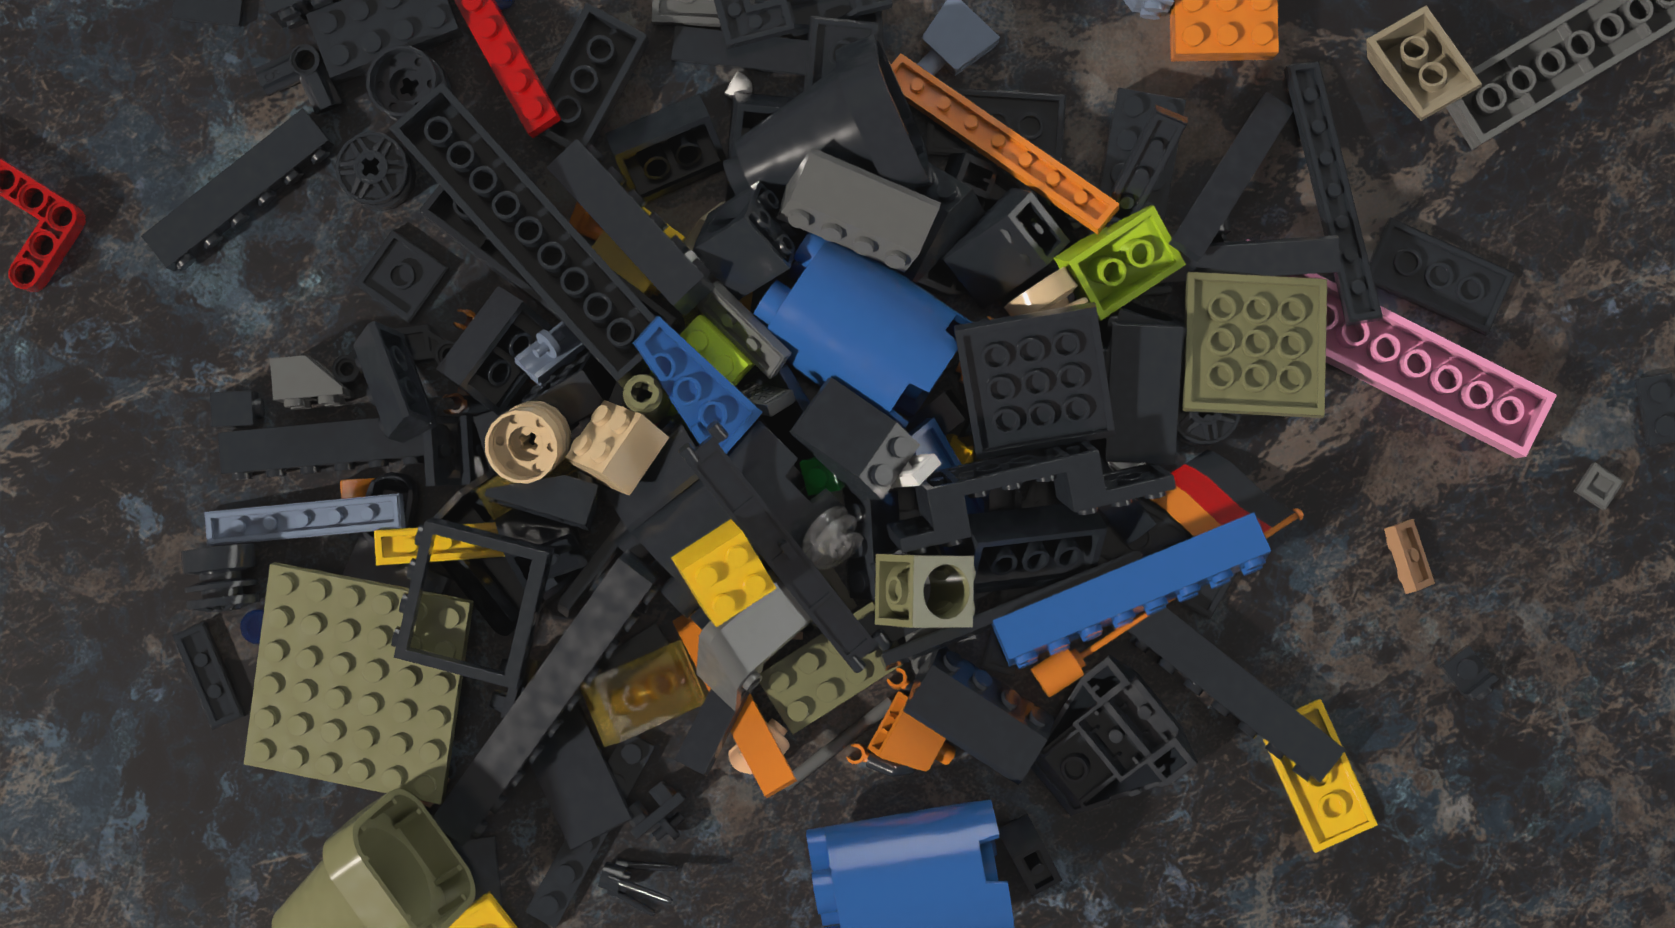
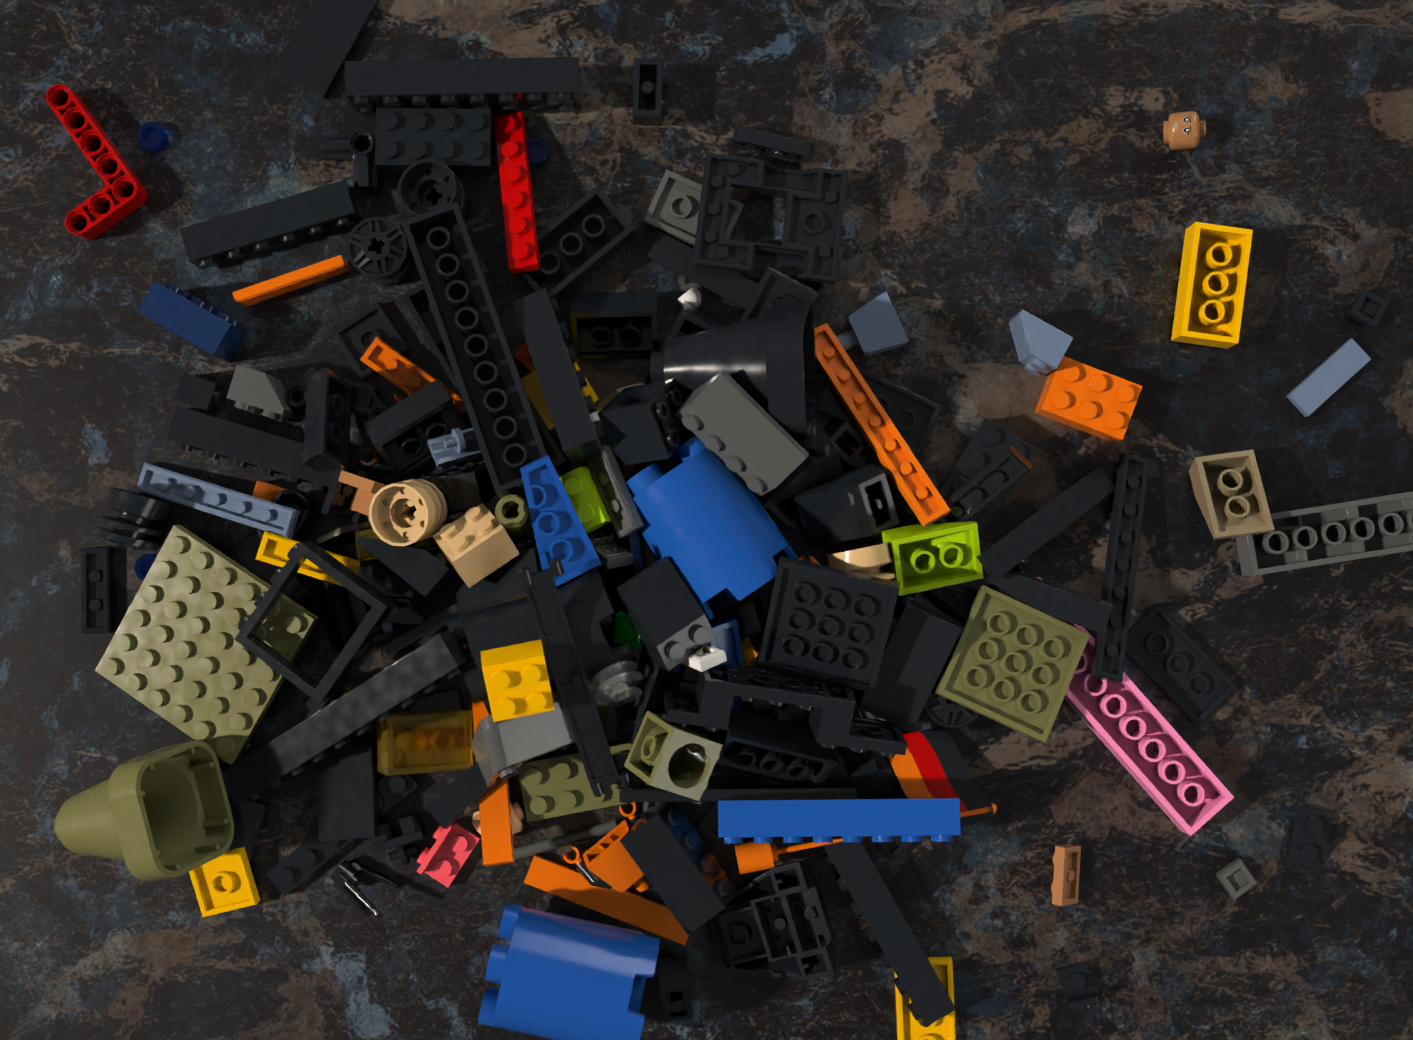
camera: 20 degrees right, 0 degrees up
(65, 146) = (152, 136): none -> clear blue tile
(198, 331) = (193, 320): none -> dark blue brick
(287, 244) = (291, 281): none -> orange tile
(448, 294) = (401, 370): none -> orange tile
(467, 445) = (363, 493): none -> medium nougat panel
(718, 807) = (448, 853): none -> coral bracket
(920, 788) = (620, 905): none -> orange tile

